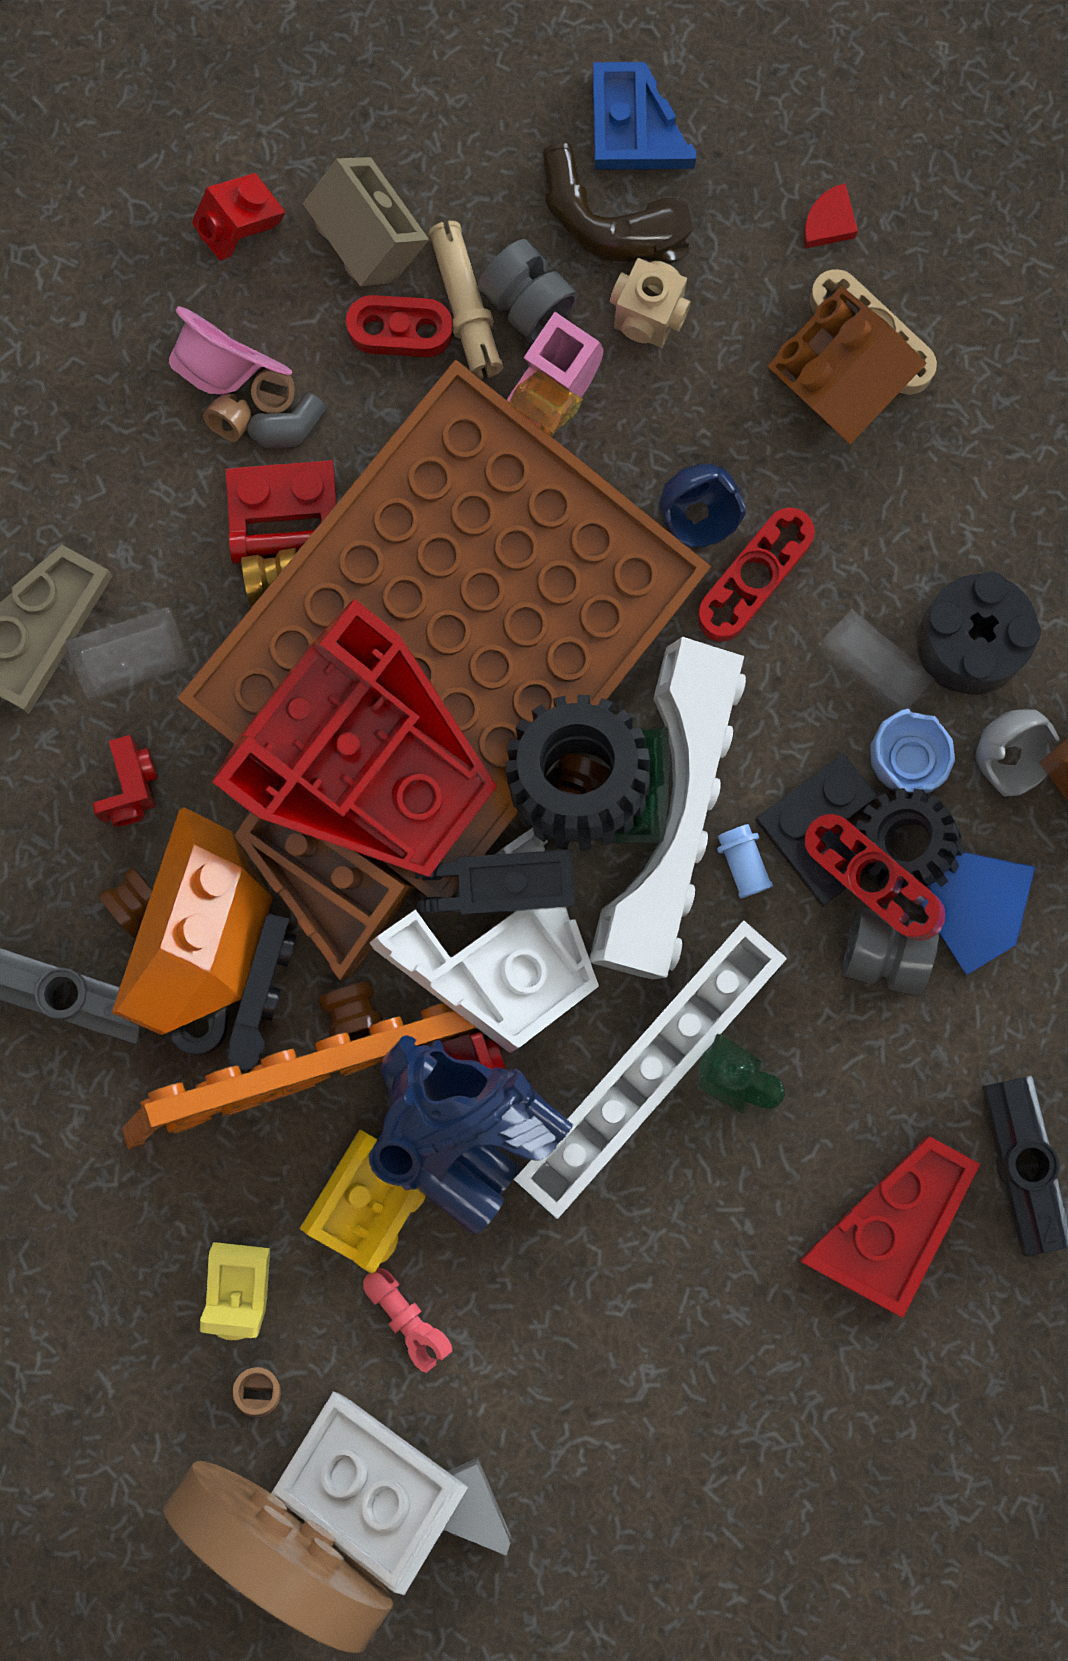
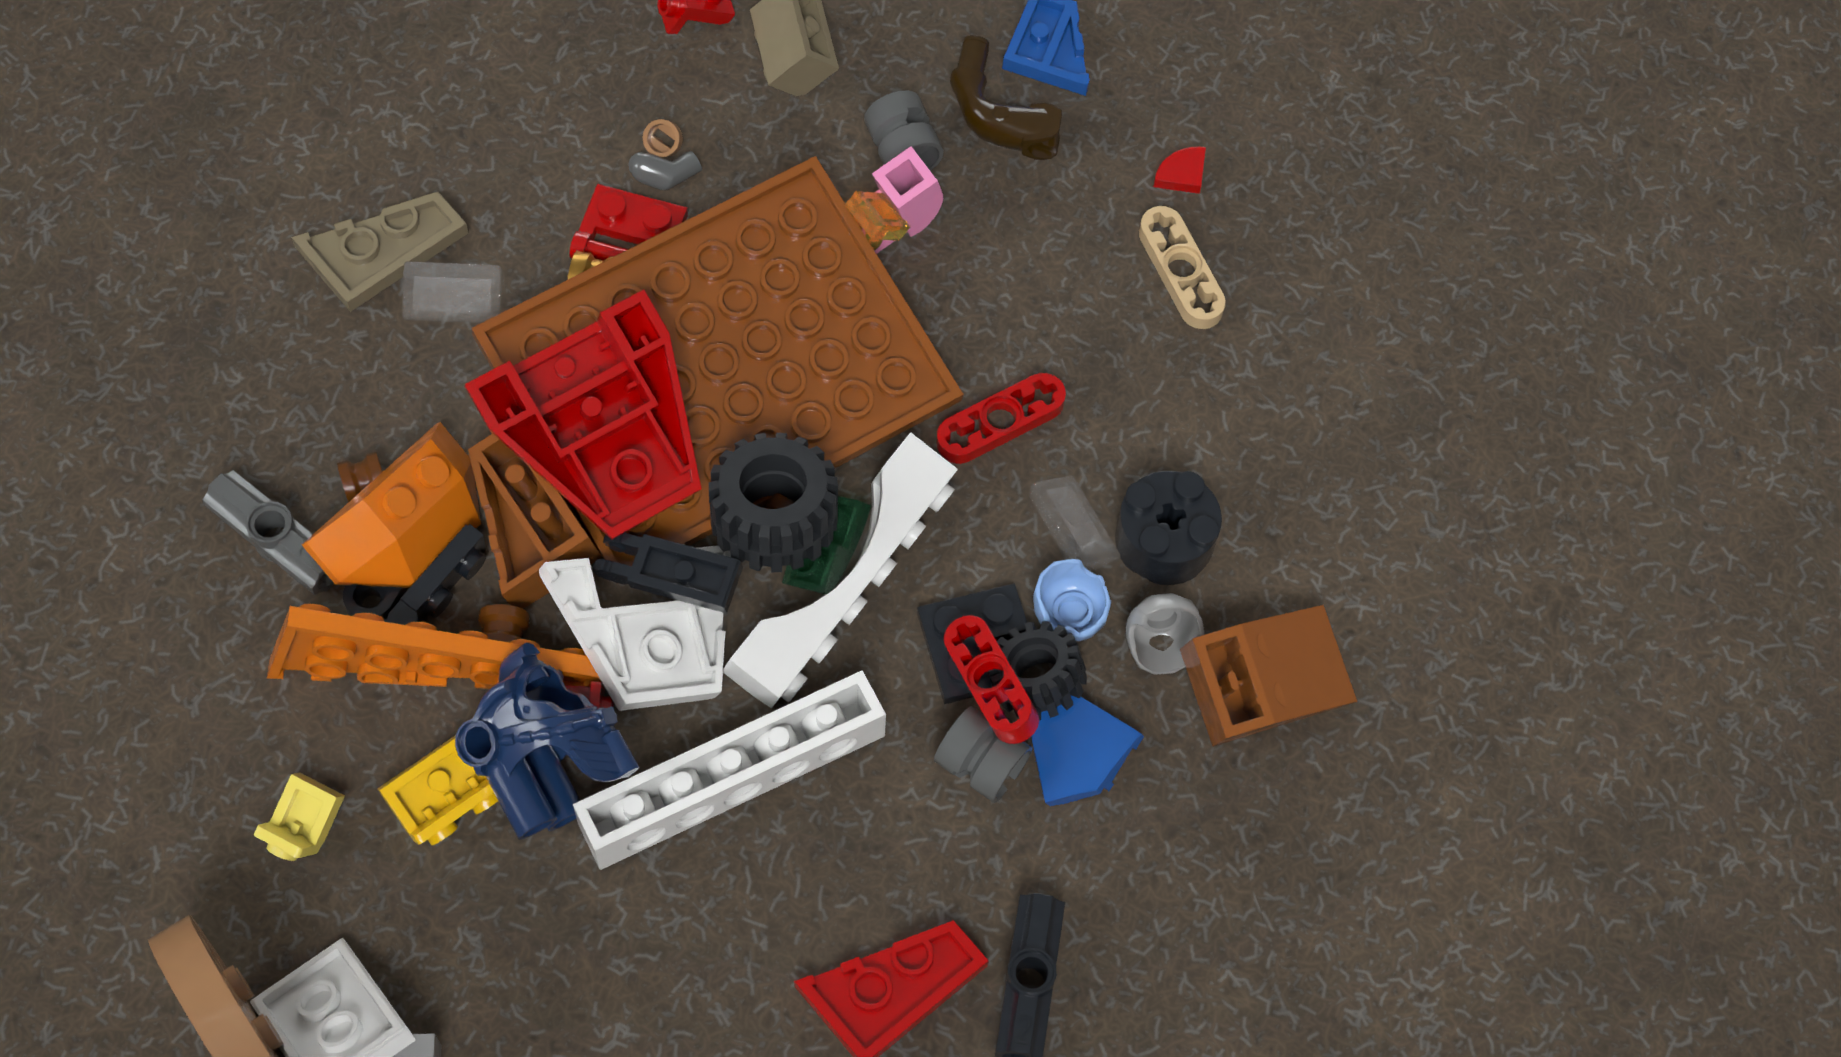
camera: 20 degrees right, 15 degrees down
(135, 772) = (412, 384): red bracket -> none
(214, 359) = (623, 96): bright pink piece -> none
(234, 412) = (622, 142): medium nougat hinge -> none
(258, 1380) = (284, 903): medium nougat hinge -> none
(382, 1289) = (432, 901): coral piece -> none
(401, 321) = (790, 127): red plate -> none
(471, 320) = (849, 142): tan pin -> none
(650, 302) = (1000, 177): tan brick -> none
(706, 485) = (976, 329): dark blue hair -> none
(735, 1079) = (802, 802): clear green hinge -> none
(744, 860) = (891, 638): light blue pin -> none
(846, 363) = (1143, 278): dark orange slope -> none

